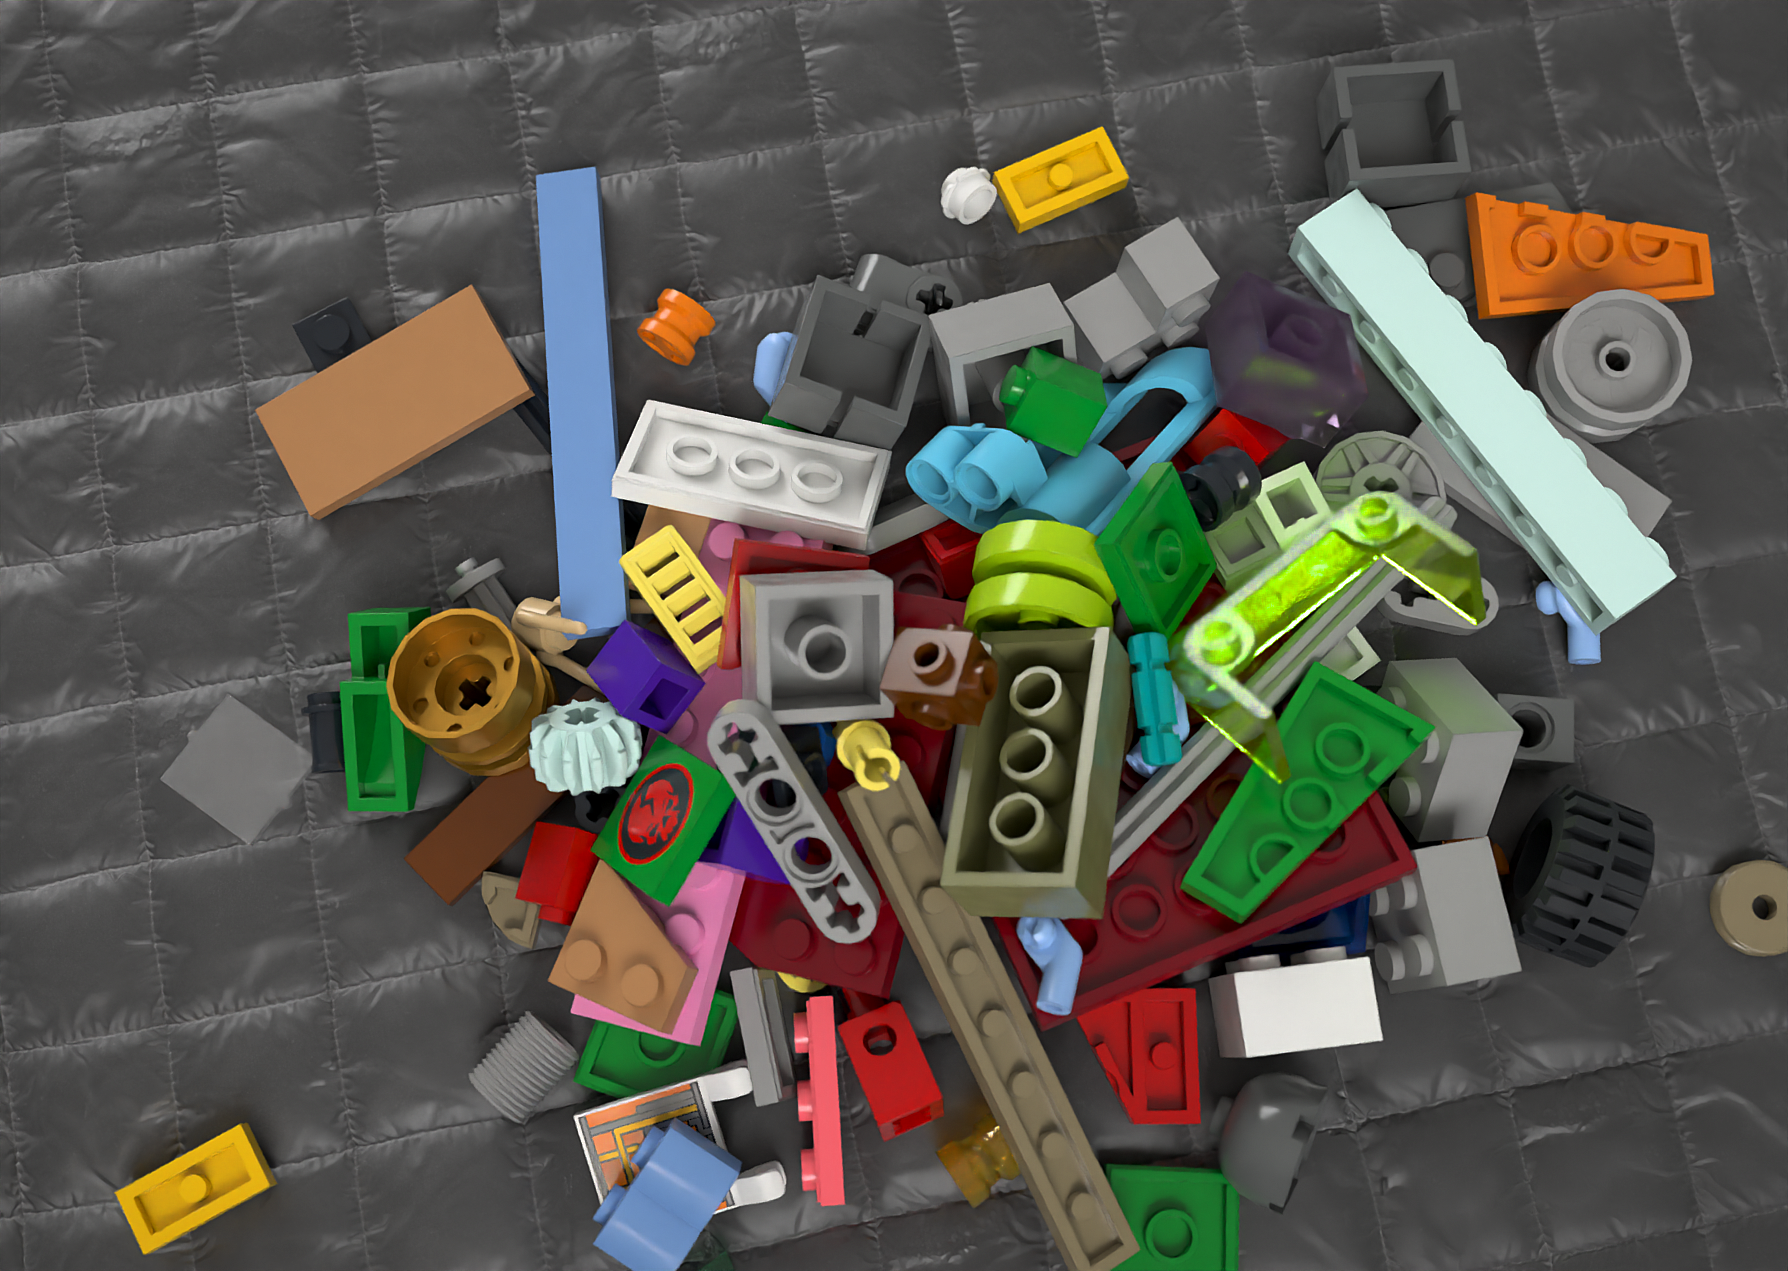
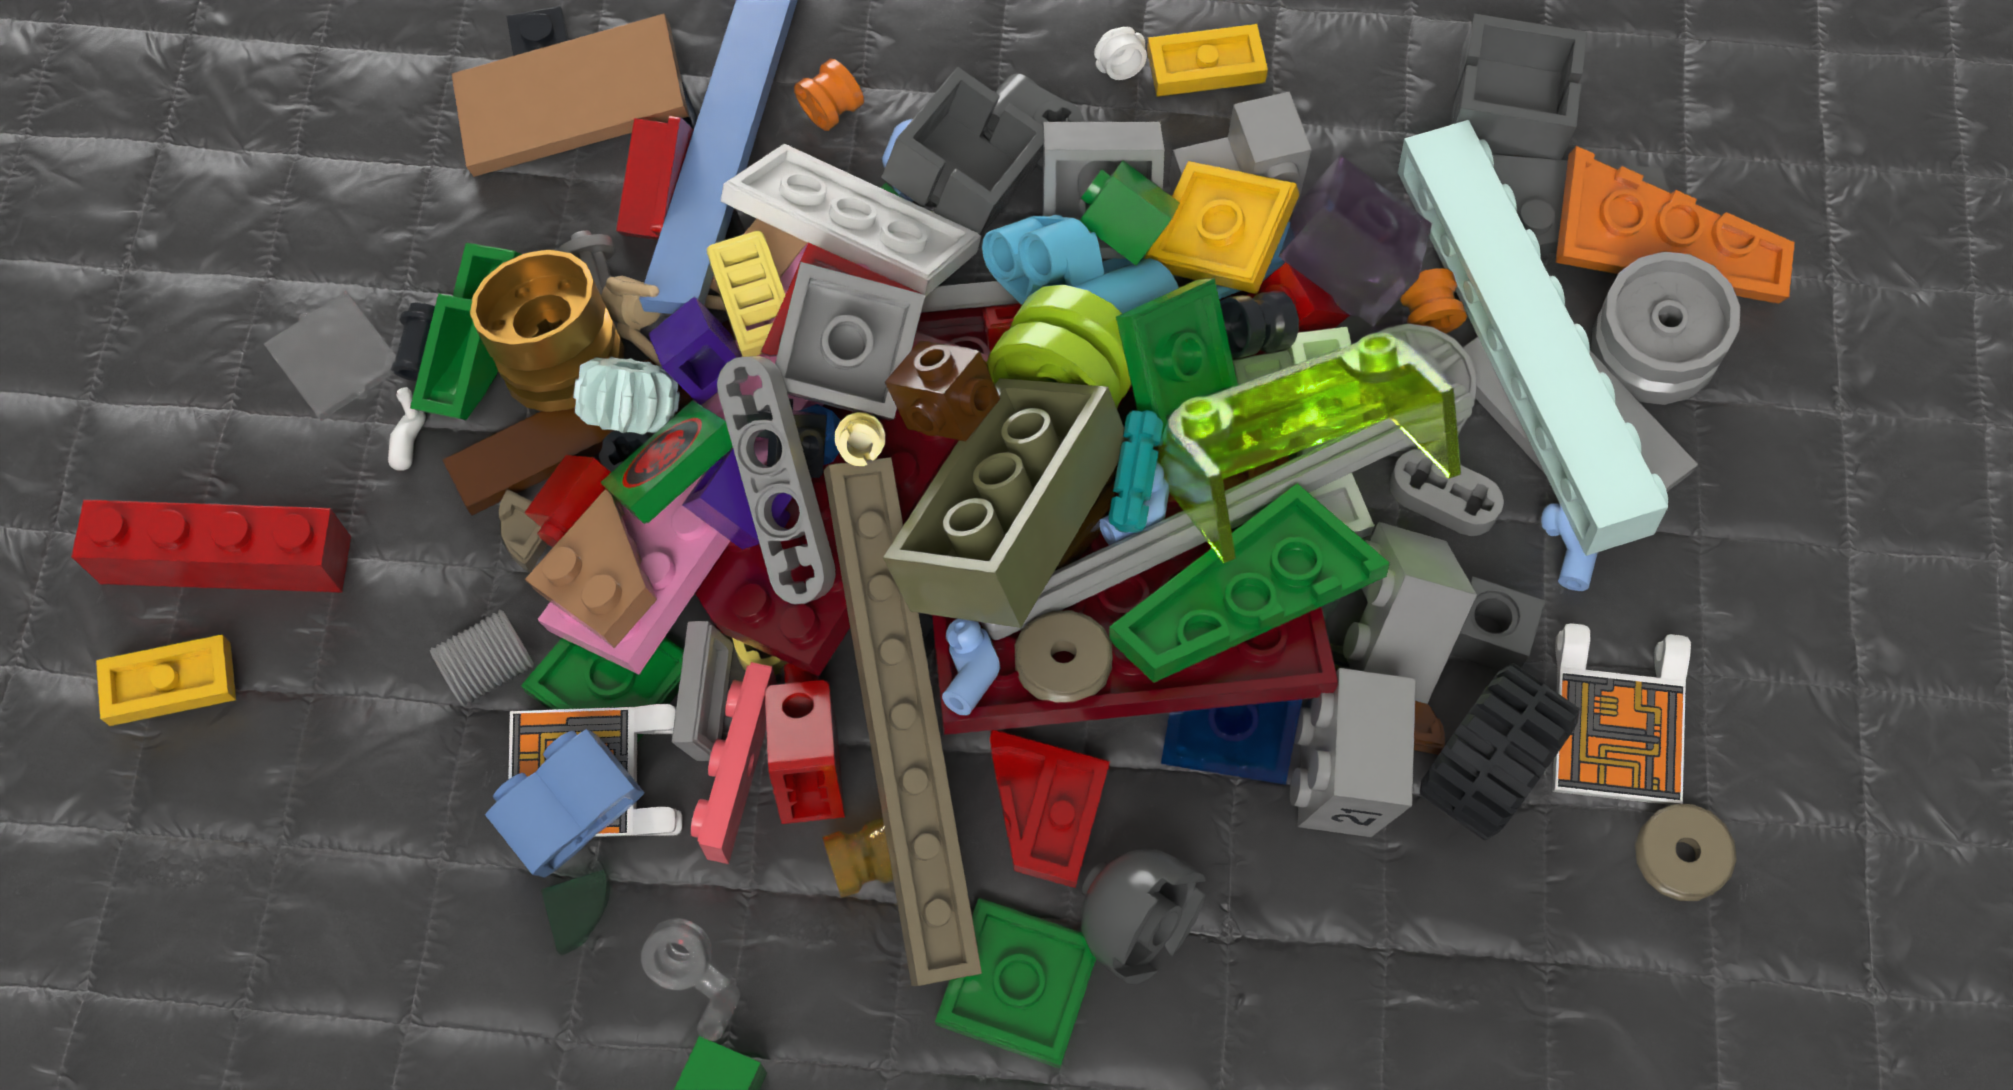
camera: 25 degrees right, 10 degrees down
(191, 1030) = (212, 546): none -> red brick
(349, 838) = (404, 434): none -> white piece
(521, 478) = (651, 175): none -> red panel
(1152, 380) = (1225, 226): none -> yellow tile
(1165, 903) = (1063, 632): none -> dark tan piece
(1294, 1008) = (1194, 794): white brick -> none
(1382, 400) = (1433, 301): none -> orange wheel
(1674, 783) = (1627, 724): none -> flag

